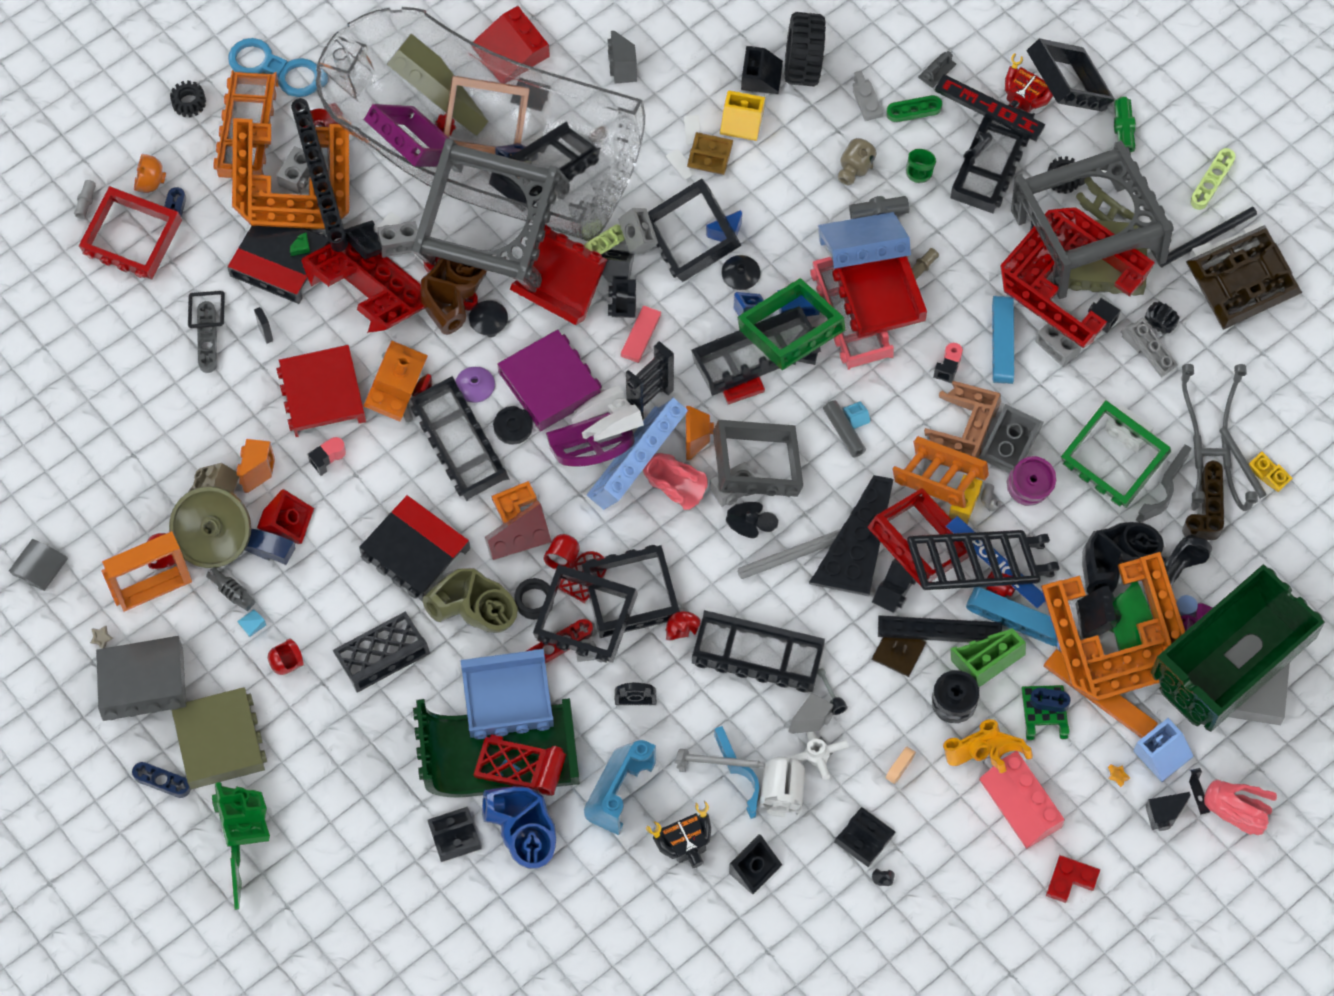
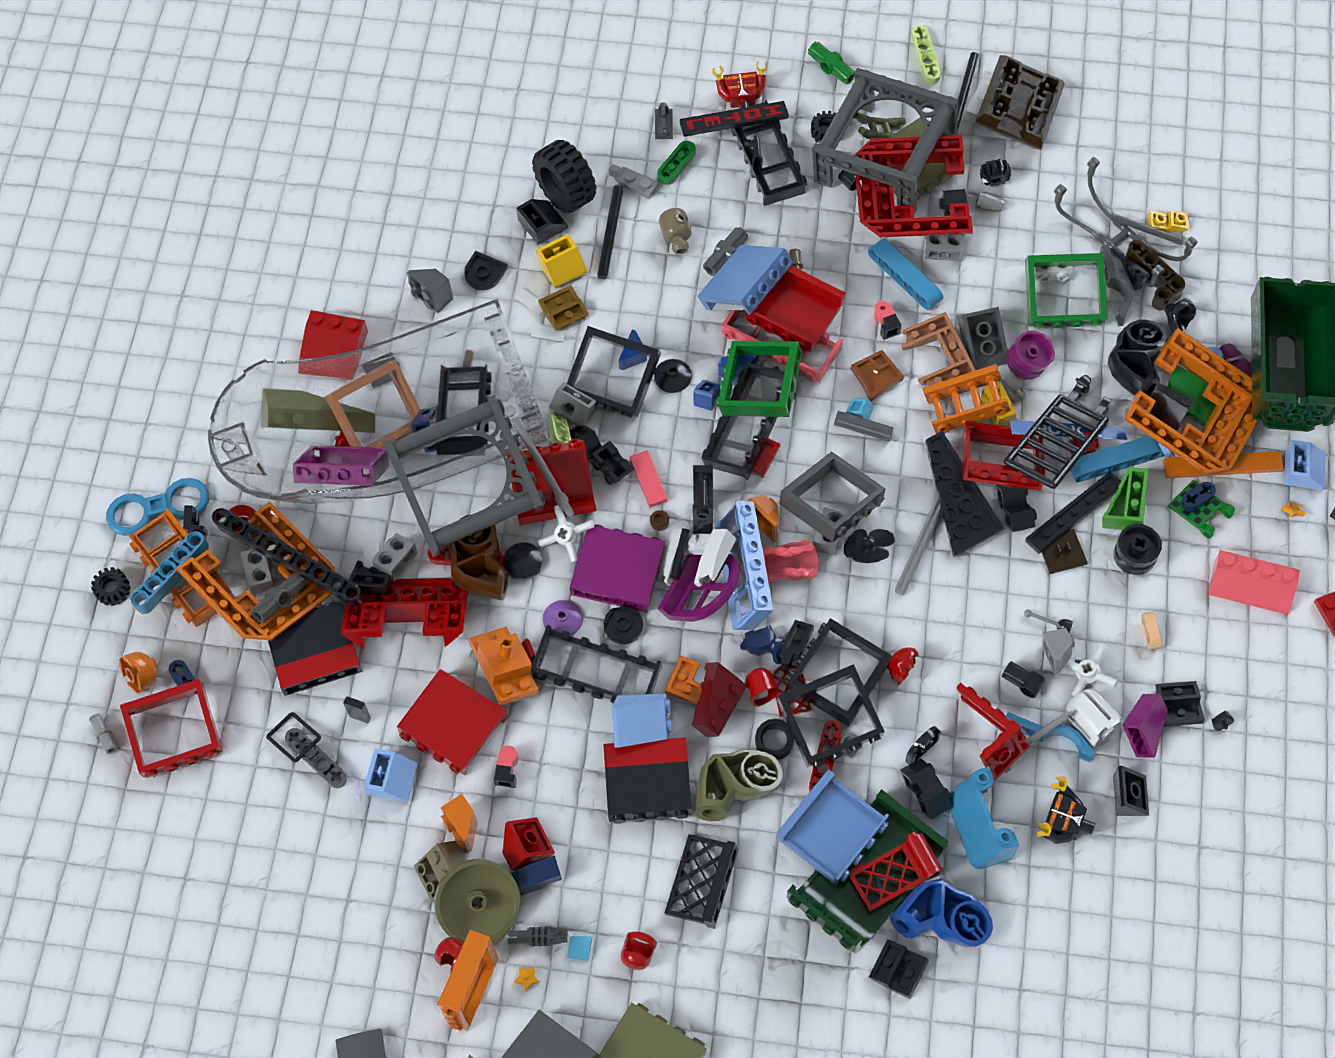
camera: 40 degrees left, 0 degrees up
(196, 611) = (526, 977): none -> light orange piece
(223, 119) = (160, 576): none -> dark azure beam
(241, 391) = (390, 776): none -> light blue slope
(273, 198) = (278, 597): none -> dark grey piece
(282, 95) = (192, 520): none -> black bracket
(300, 245) = (324, 624): green tile -> none
(447, 498) = (640, 719): none -> light blue slope
(536, 322) = (570, 538): none -> white bar
(554, 291) = (561, 498): none -> light grey bar
(599, 405) = (679, 554): none -> black piece
(600, 523) = (763, 641): none -> dark blue animal
(602, 733) = (929, 791): none -> black brick
(617, 371) = (659, 520): none -> reddish brown tile
(620, 543) = (795, 643): none -> black hinge
(679, 78) = (484, 271): none -> black tile
(689, 746) = (1009, 744): none -> red bracket
(758, 651) = (972, 636): window -> none
(764, 720) = (1028, 682): none -> black piece
(806, 123) = (610, 232): none -> black axle
(817, 826) = (1146, 724): none -> magenta slope
(896, 397) = (876, 374): none -> dark orange plate
(920, 165) = (725, 197): green helmet -> none
(983, 742) = (1192, 562): light orange piece -> none
(1045, 55) = (767, 53): black window -> none
(1055, 538) = (1084, 380): none -> black piece
(1144, 338) = (1009, 198): light grey tile -> none
(1190, 487) = (1135, 273): none -> black tile

